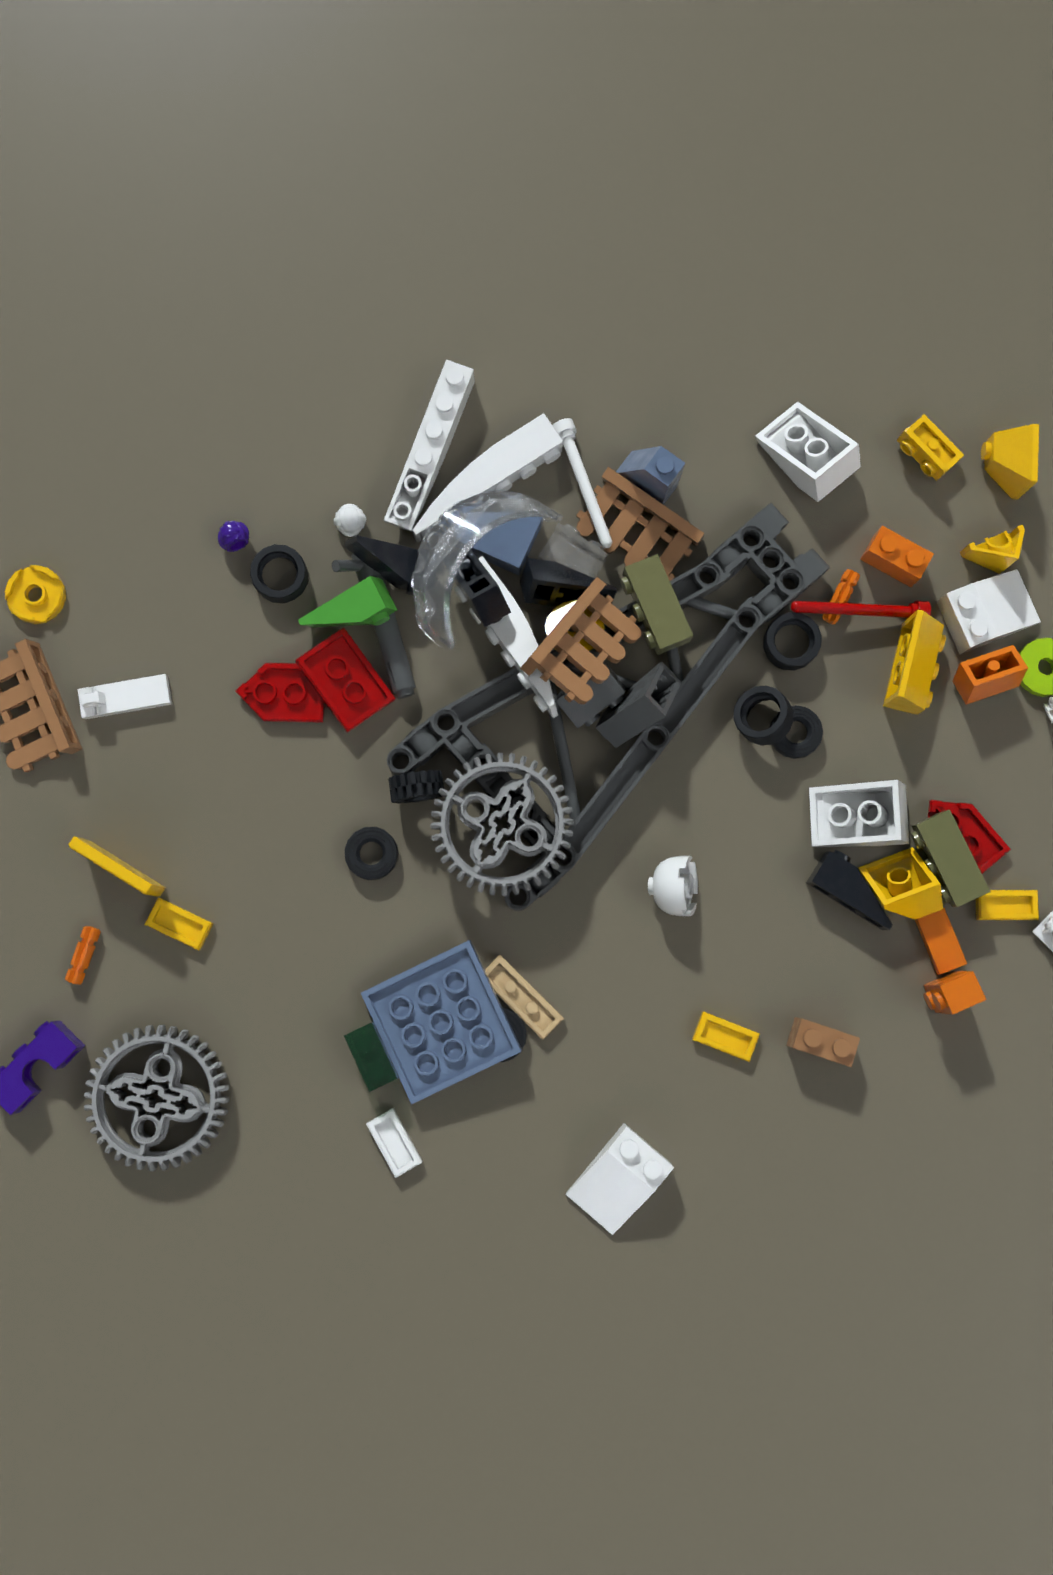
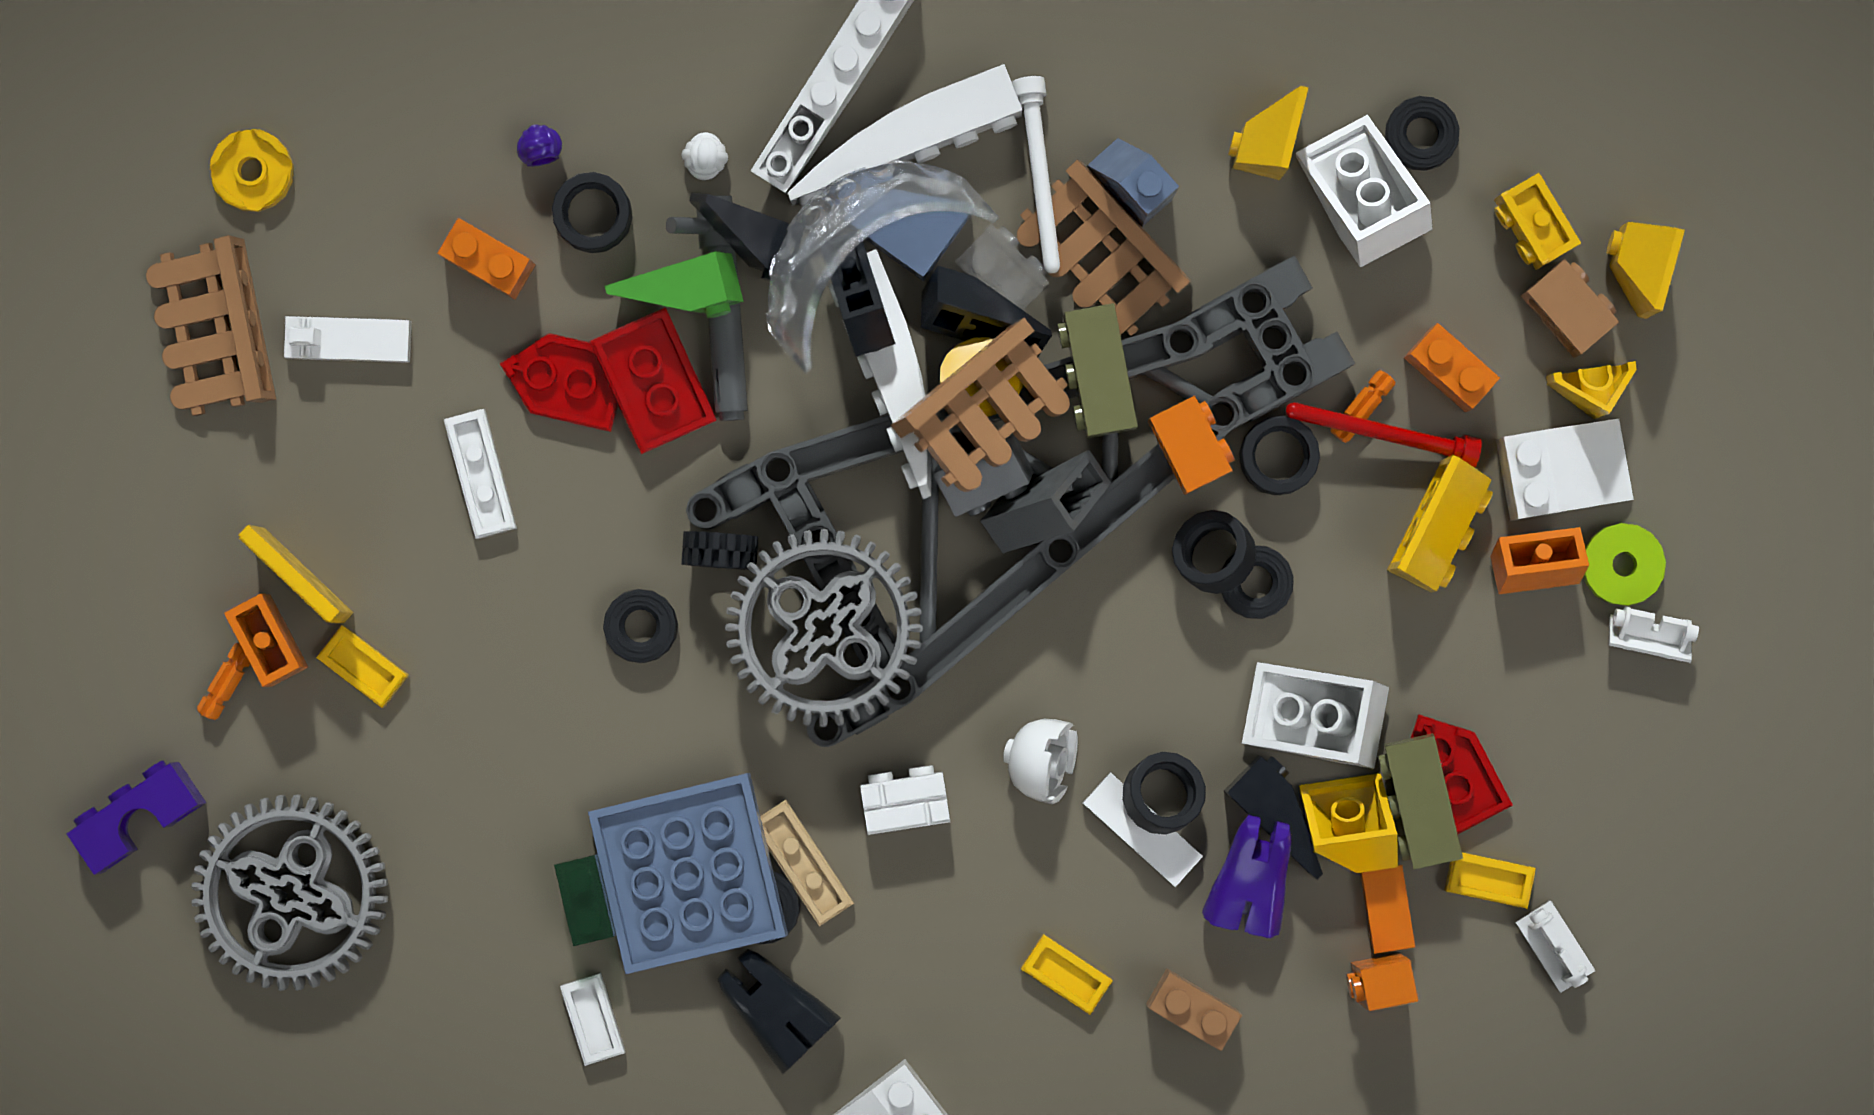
camera: 20 degrees right, 5 degrees up
(105, 918) = (266, 640): none -> orange brick
(211, 619) = (486, 258): none -> orange brick
(236, 770) = (480, 473): none -> white tile
(526, 1107) = (777, 1010): none -> black piece
(584, 937) = (905, 801): none -> white brick
(732, 642) = (1191, 444): none -> orange brick
(737, 426) = (1269, 137): none -> yellow slope
(756, 921) = (1166, 853): none -> white tile
(778, 875) = (1189, 776): none -> black tyre
(843, 389) = (1446, 125): none -> black tyre
(844, 940) = (1252, 881): none -> dark purple piece
(967, 500) = (1571, 307): none -> medium nougat brick

